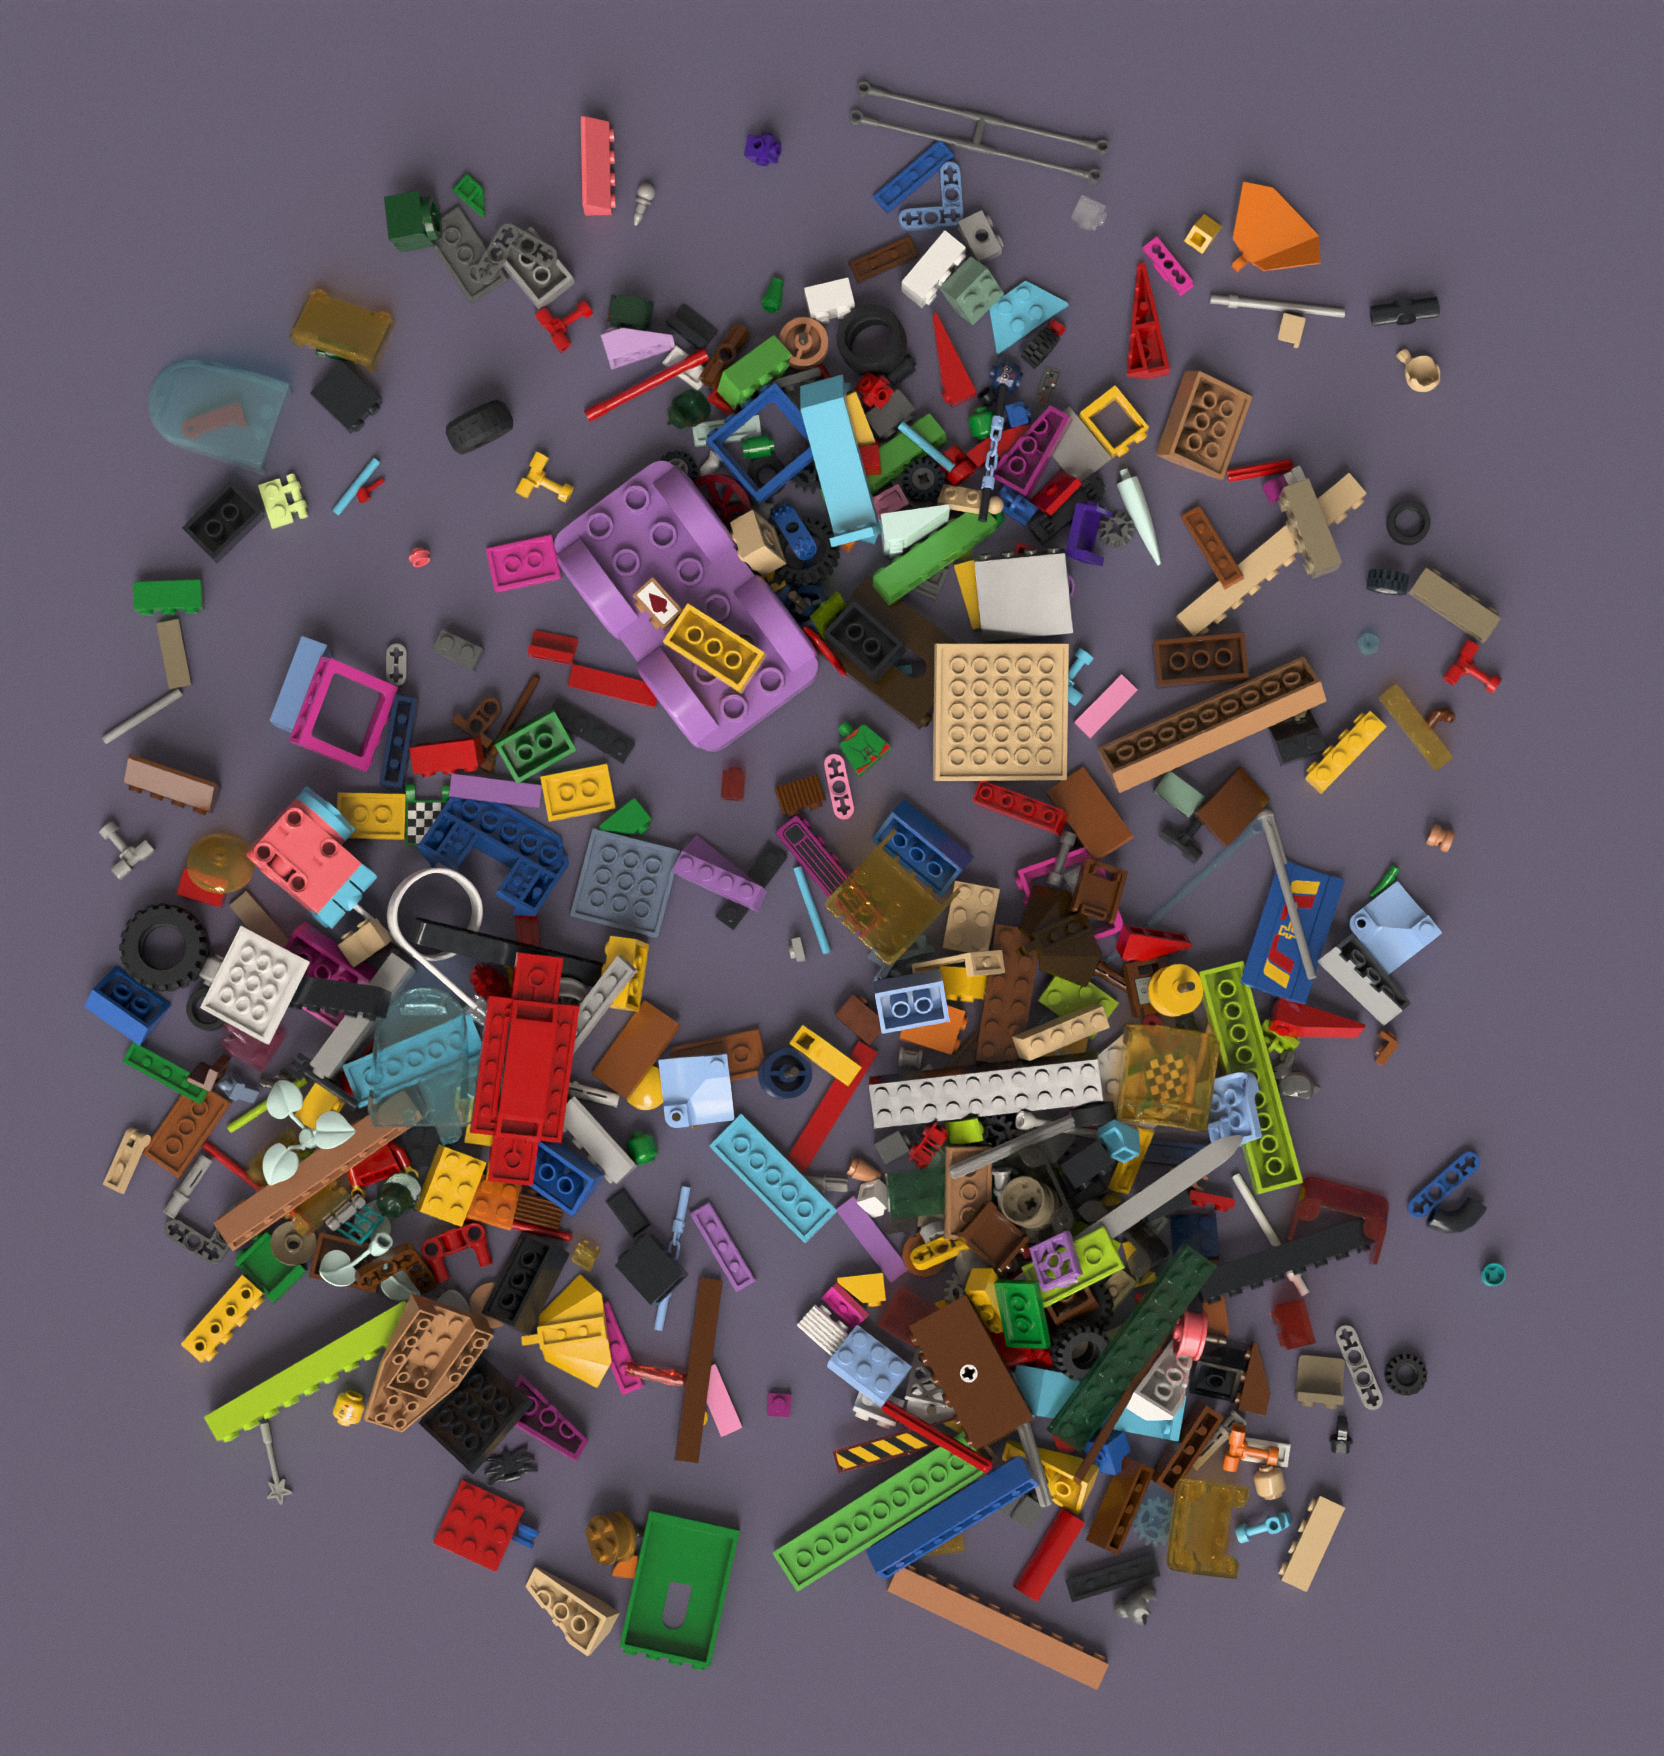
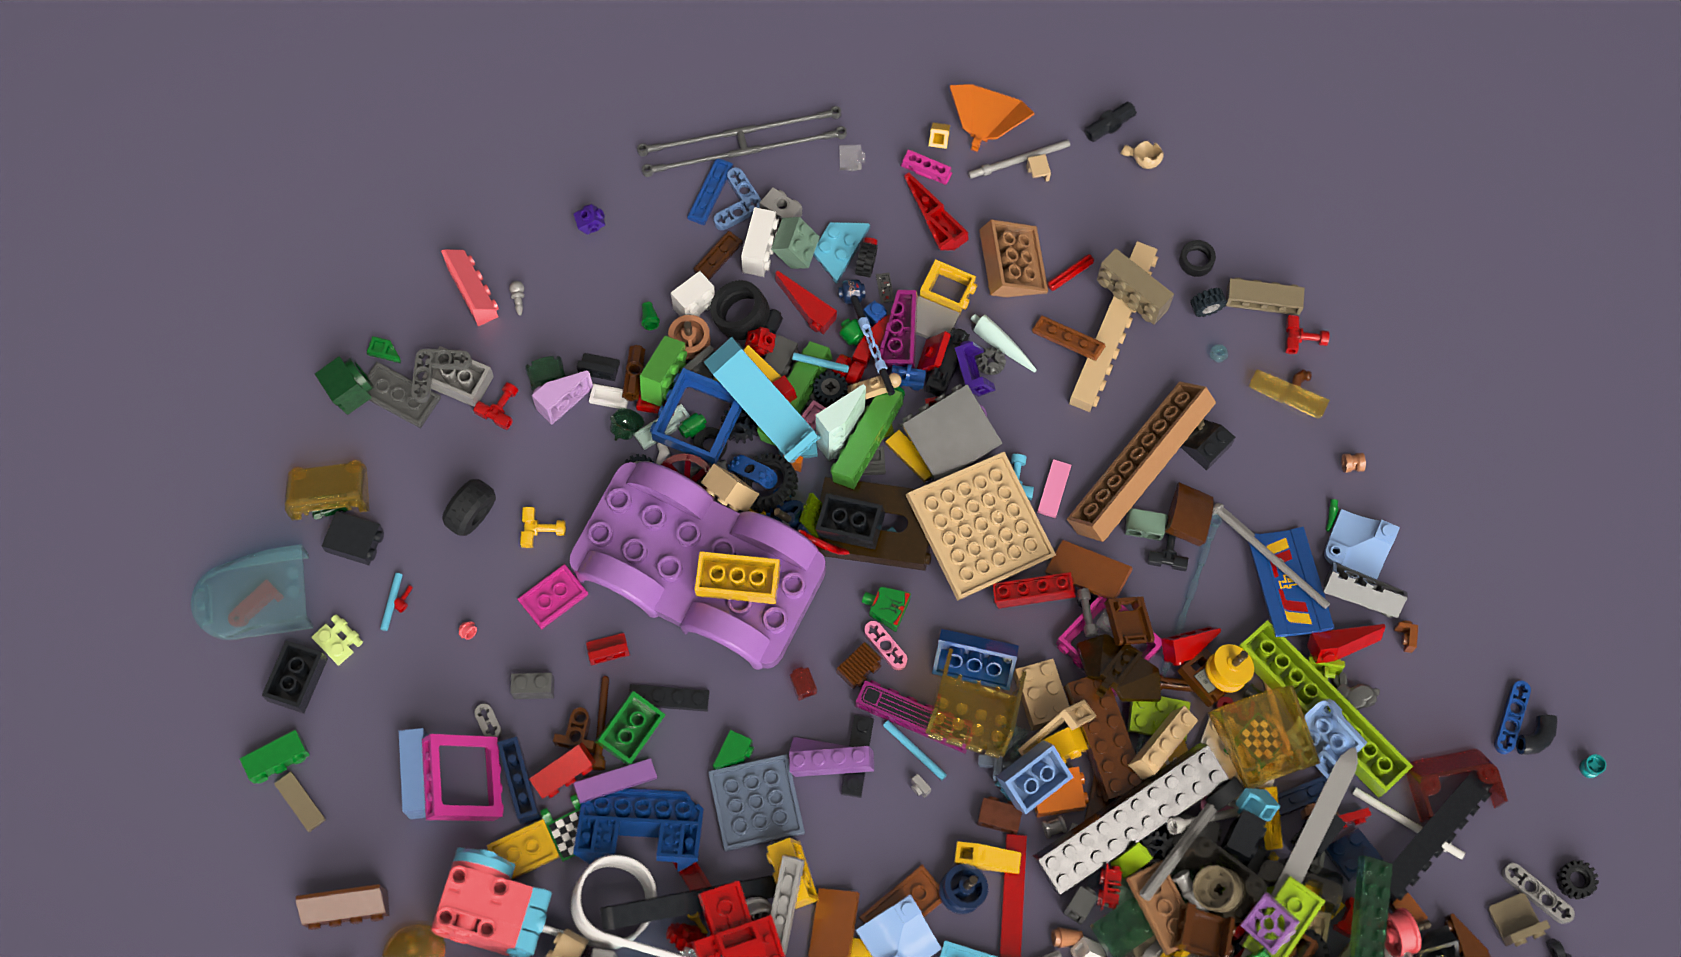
camera: 30 degrees left, 15 degrees down
(141, 716) = (294, 864): light grey bar -> none
(578, 792) = (682, 750): yellow plate -> none
(604, 407) = (559, 452): red piece -> none
(611, 685) = (670, 654): red tile -> none
(658, 604) = (675, 567): brick -> none
(987, 395) = (845, 312): black hinge -> none
(1200, 660) = (1106, 420): reddish brown brick -> none
(1274, 487) = (1089, 277): magenta leg -> none
(1293, 1324) = (1471, 883): clear red slope -> none
(1351, 745) = (1249, 435): yellow brick -> none

